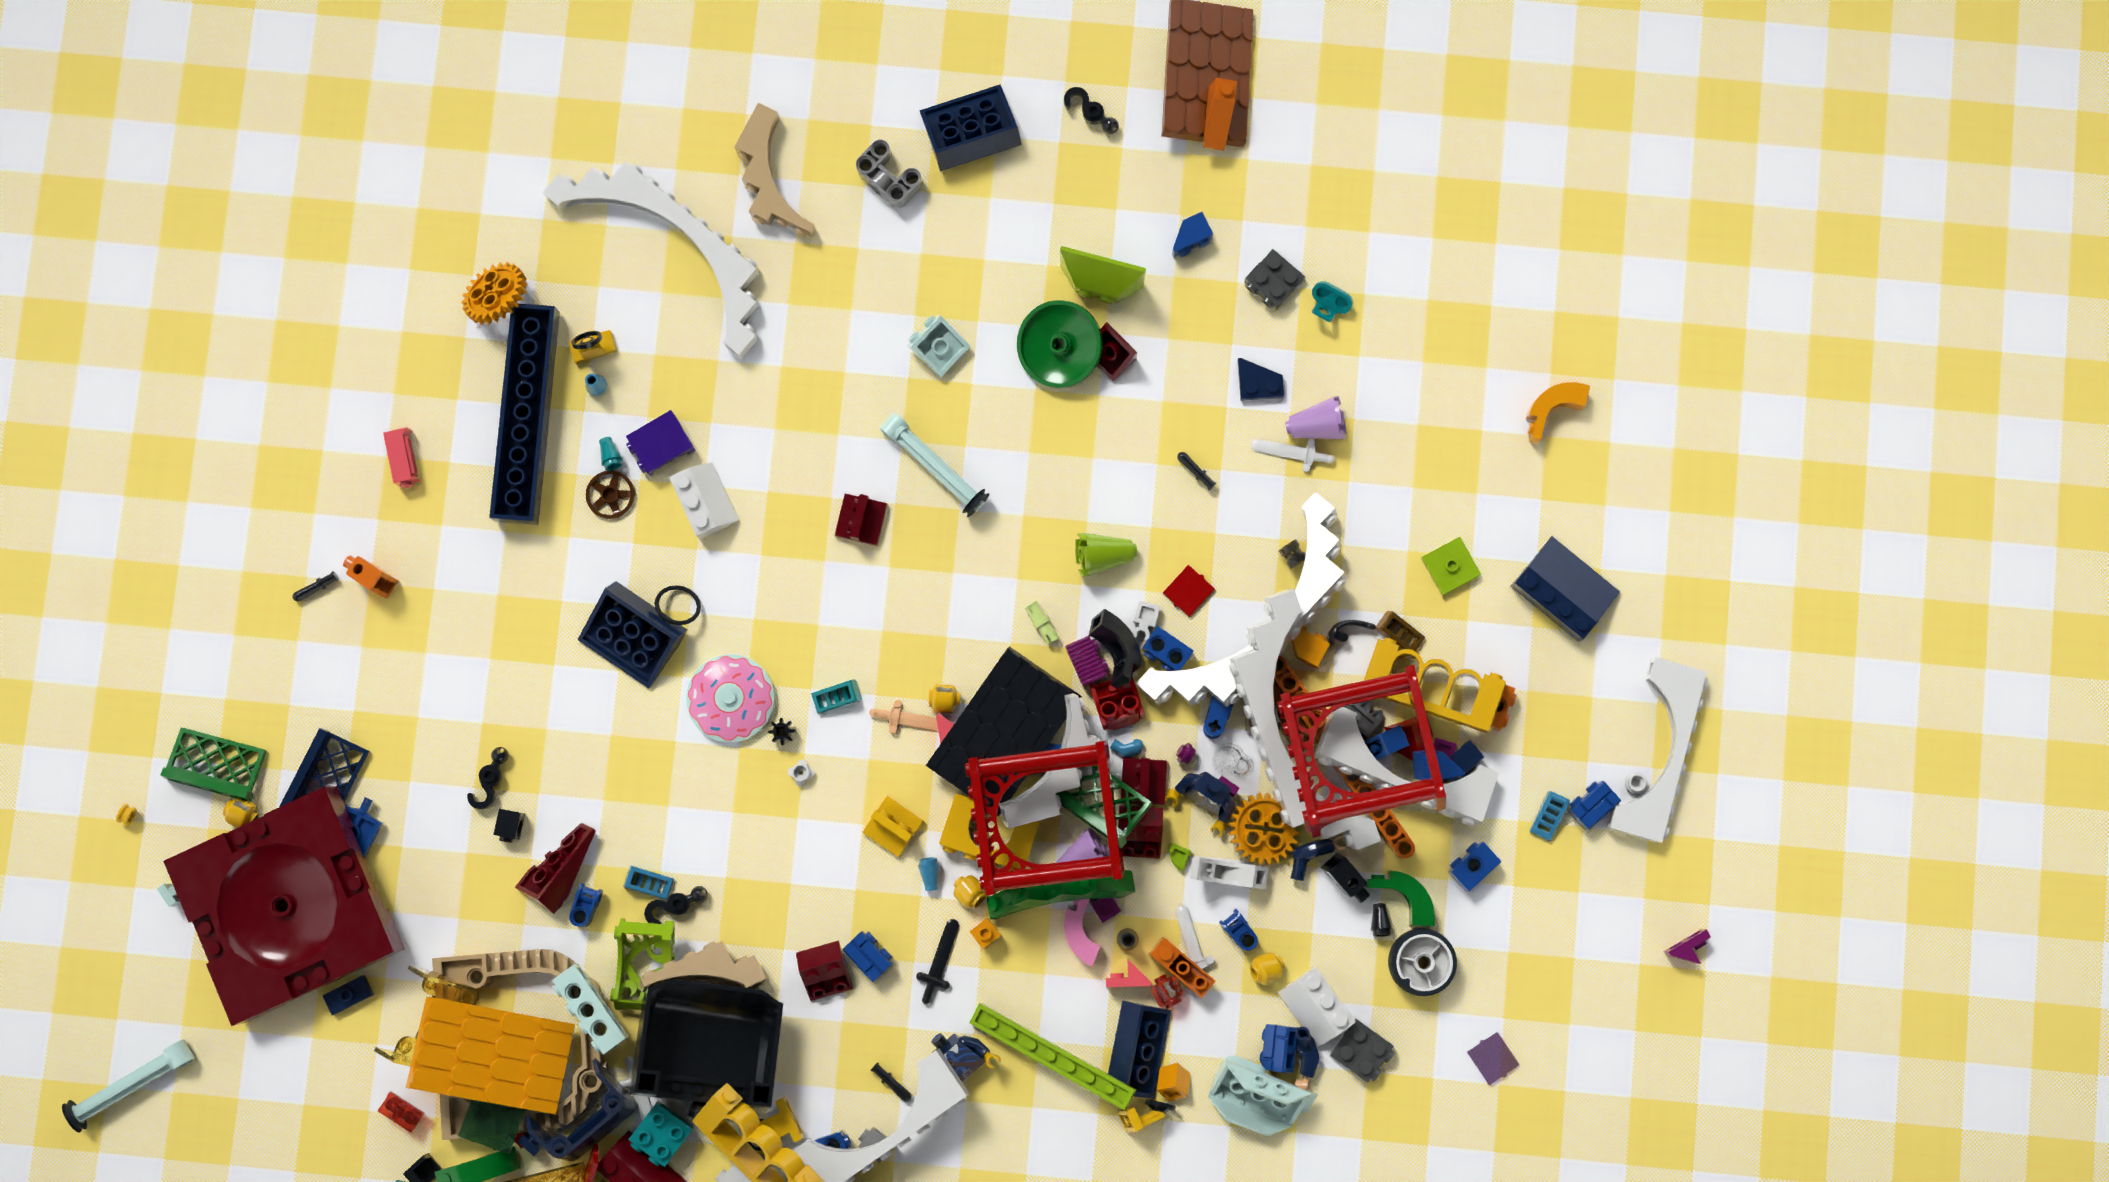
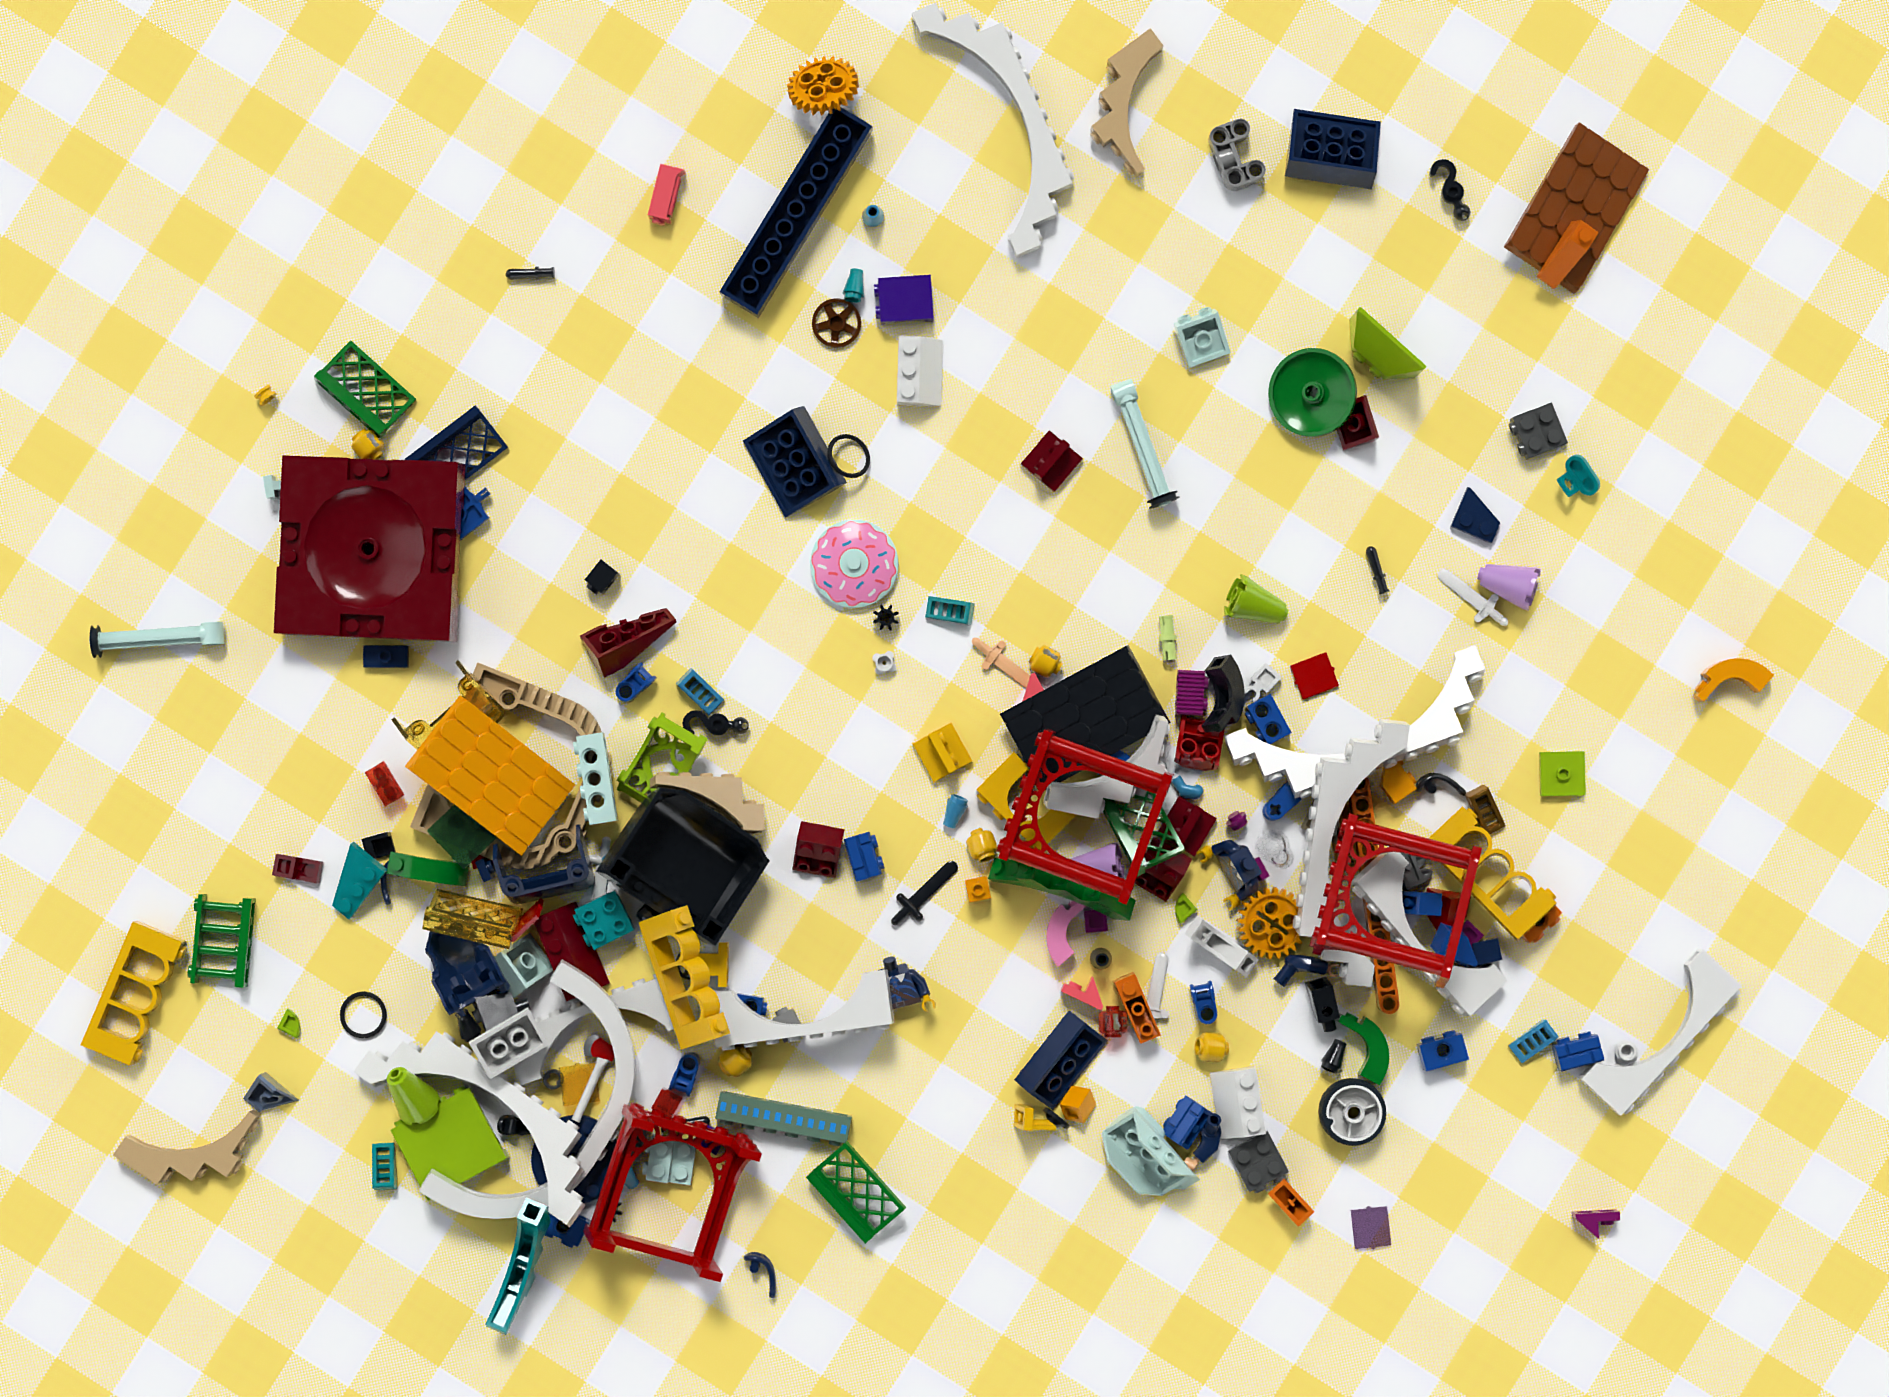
camera: 20 degrees right, 5 degrees up
(370, 576) = (585, 288): orange torso -> none
(489, 777) = (604, 525): black piece -> none
(592, 345) = (887, 178): yellow piece -> none
(895, 1086) = (832, 988): black piece -> none
(1052, 1056) = (983, 1027): lime plate -> none
(1192, 233) = (1486, 351): blue slope -> none
(1295, 558) = (1425, 696): clear smoke wheel -> none
(1410, 1073) = (1291, 1202): none -> orange slope
(1565, 589) = (1654, 847): dark blue slope -> none

